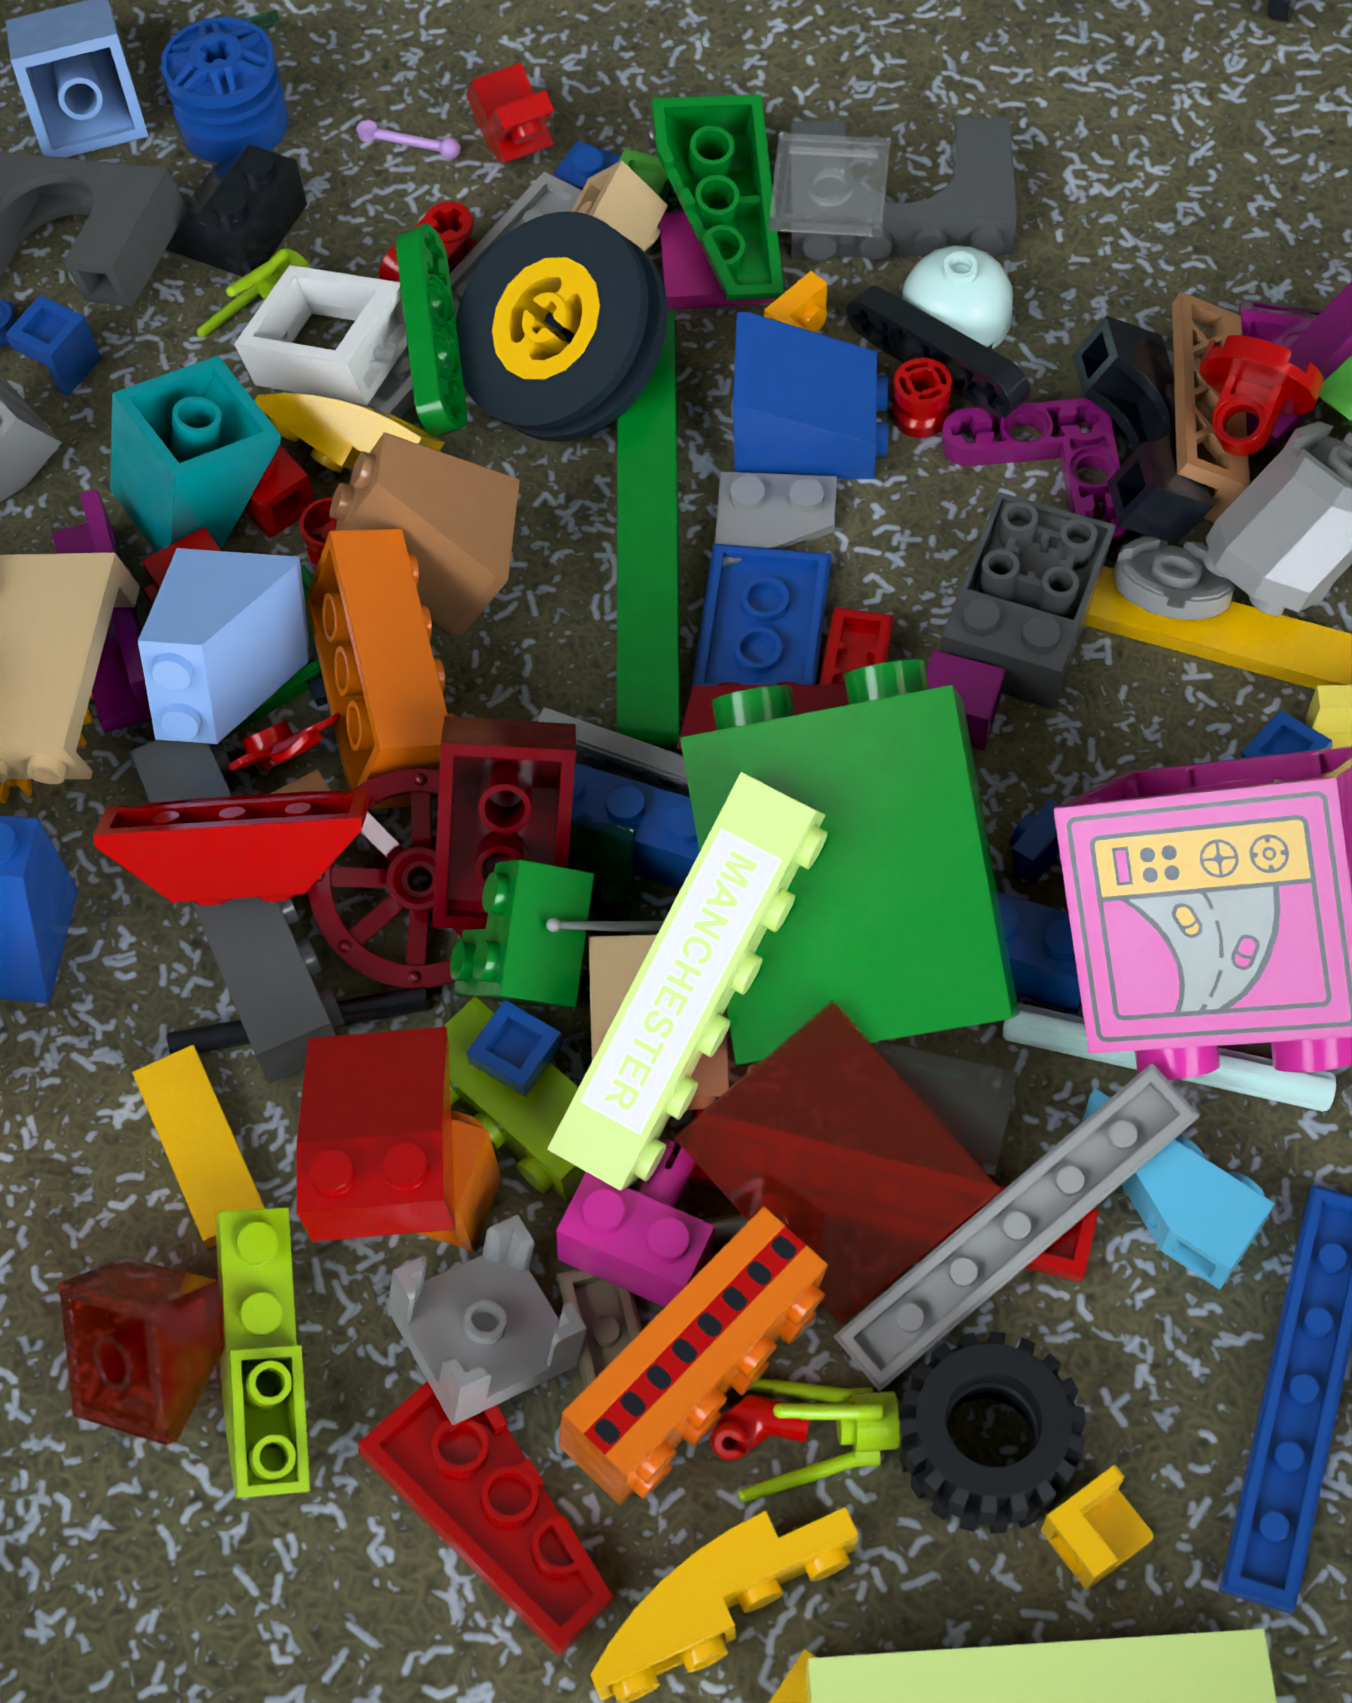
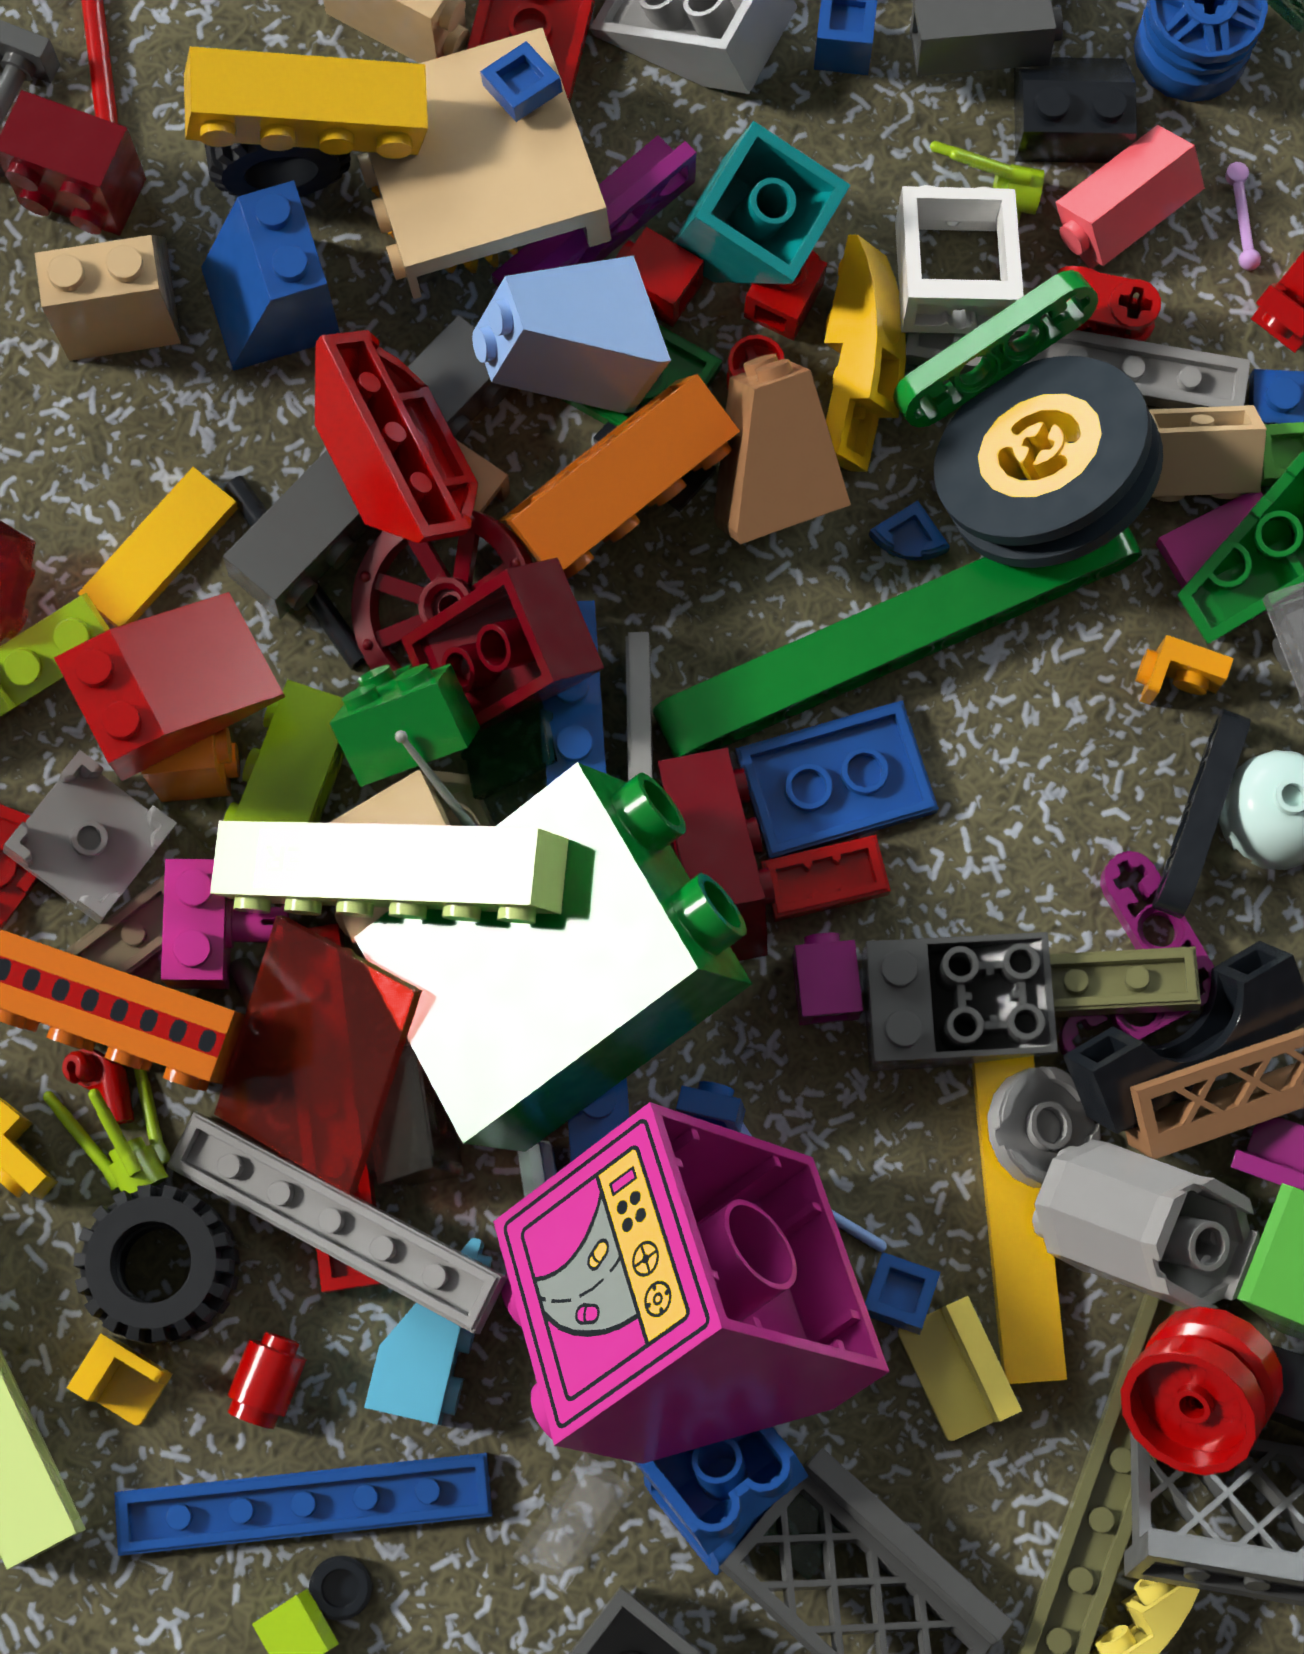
camera: 60 degrees right, 15 degrees up
(280, 744) = (520, 432): red plate -> none
(345, 197) = (1129, 196): none -> coral brick
(514, 1047) = (308, 756): blue plate -> none
(558, 481) = (910, 534): none -> blue tile
(773, 510) = (966, 737): light grey wing -> none
(805, 402) = (1081, 716): blue slope -> none
(921, 397) = (1138, 828): red wheel -> none
(1070, 453) = (1125, 982): none -> olive tile
(1156, 1373) = (266, 1380): none -> red brick
(1257, 380) = (1246, 1129): red tile -> none

